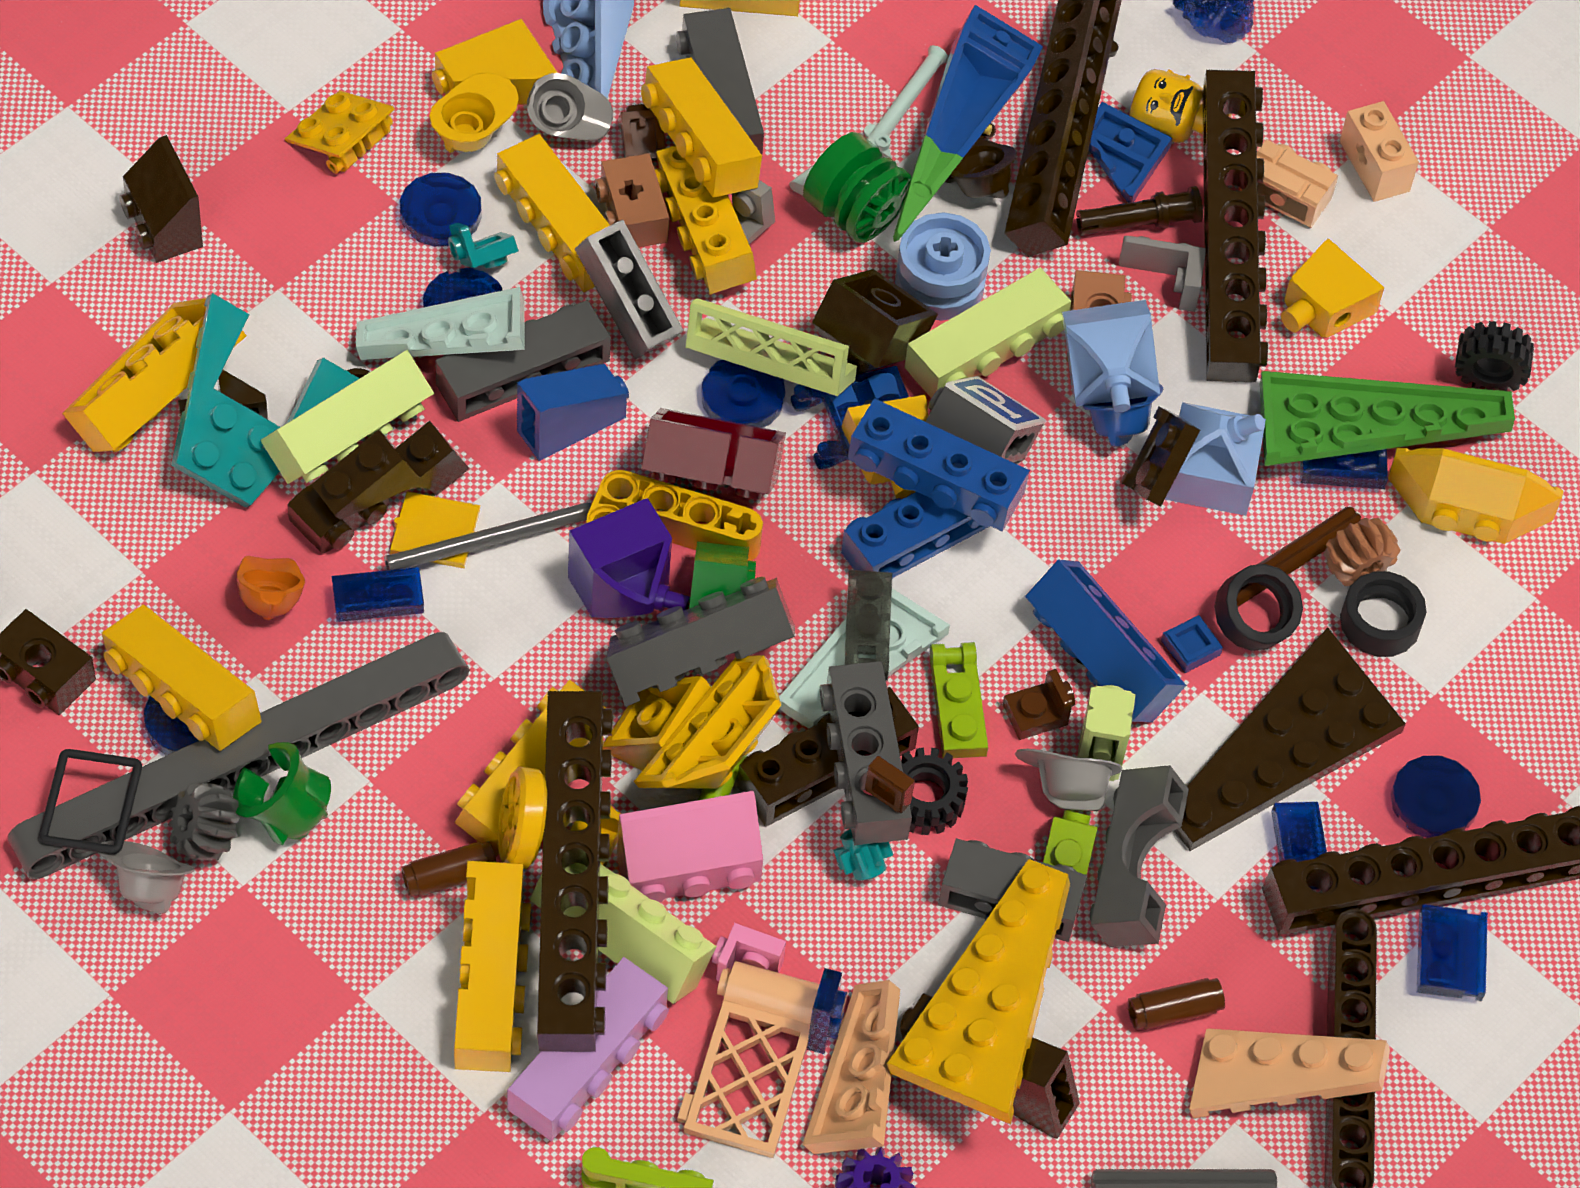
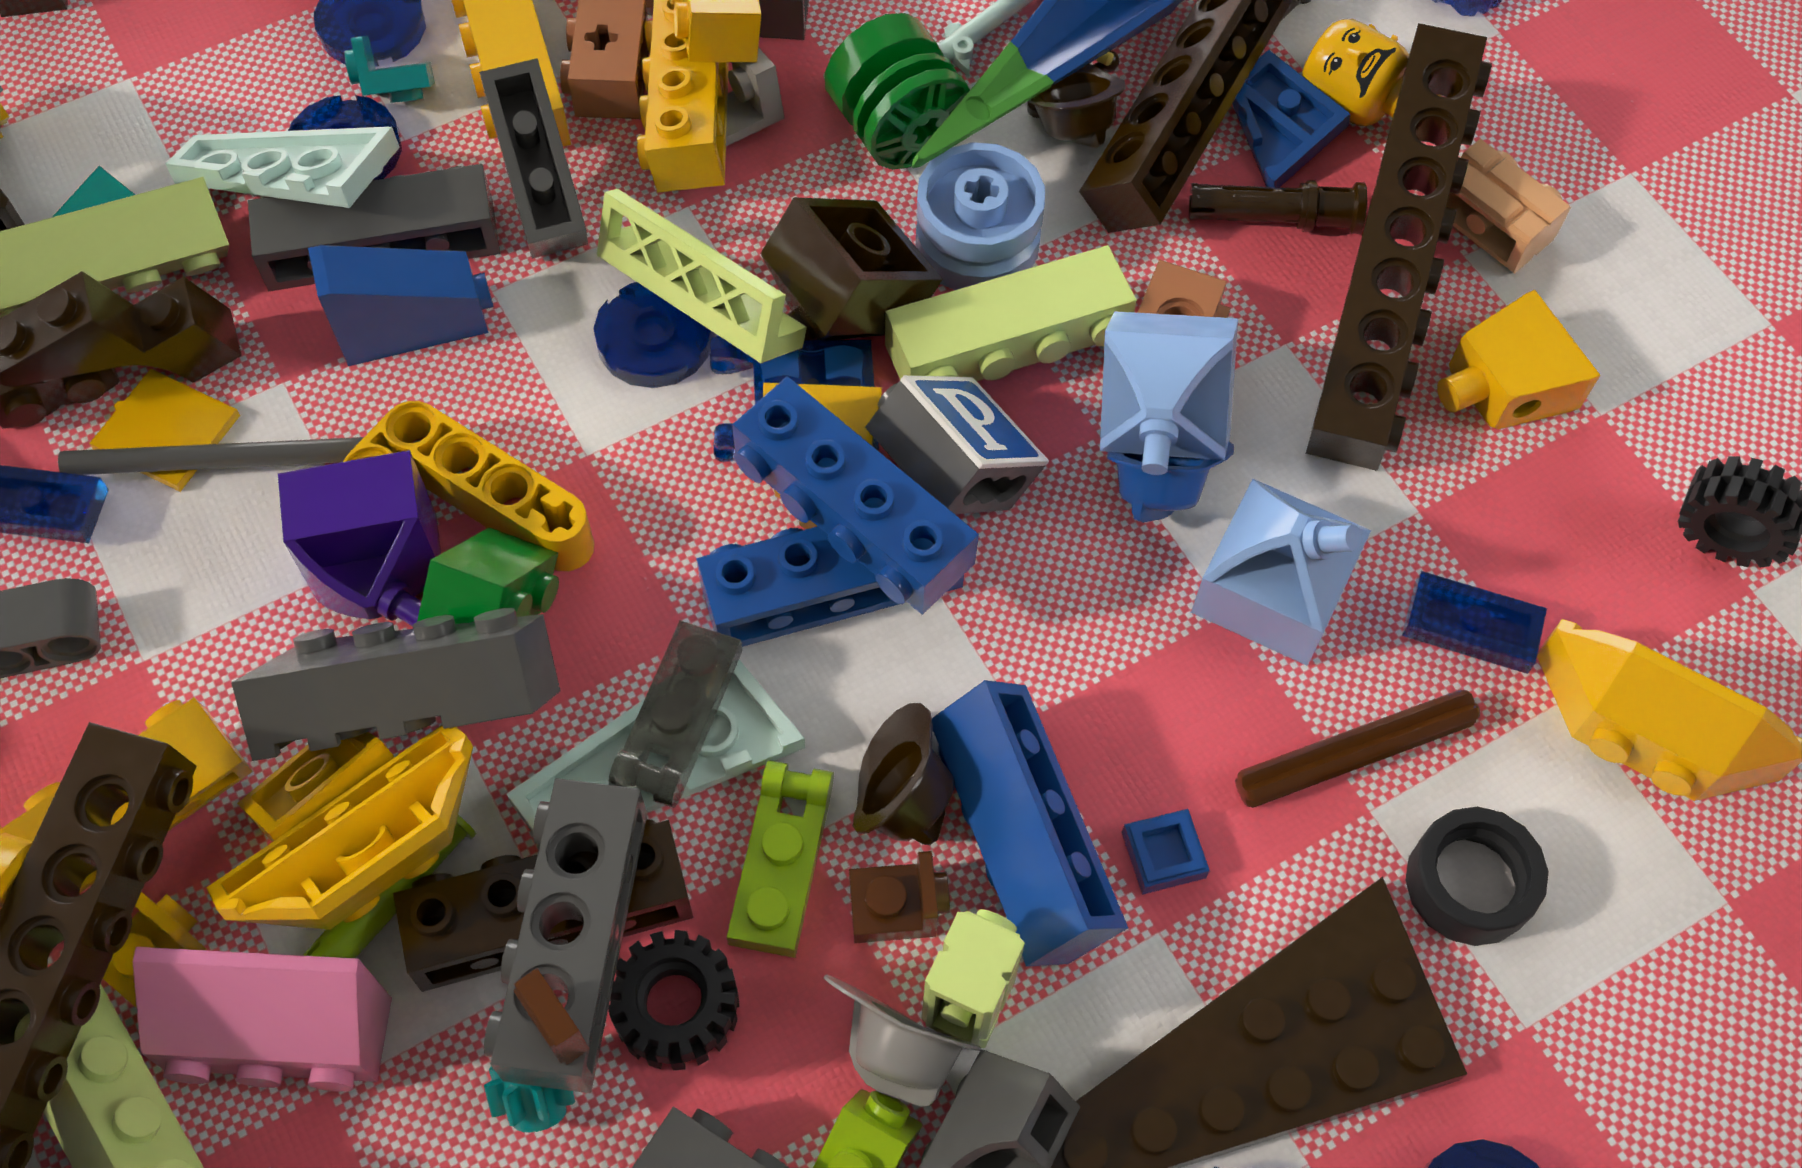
camera: 20 degrees right, 5 degrees up
(713, 452) = (554, 405): dark red piece -> none
(1019, 632) = (903, 780): none -> dark brown piece
(1161, 456) = (1197, 553): dark brown plate -> none
(1168, 258) = (1297, 271): light grey bracket -> none
(1284, 591) = (1332, 823): black tyre -> none
(1345, 416) = (1498, 552): bright green wing -> none
(1361, 550) = (1467, 769): nougat gear -> none
(1378, 151) = (1637, 188): light nougat brick -> none

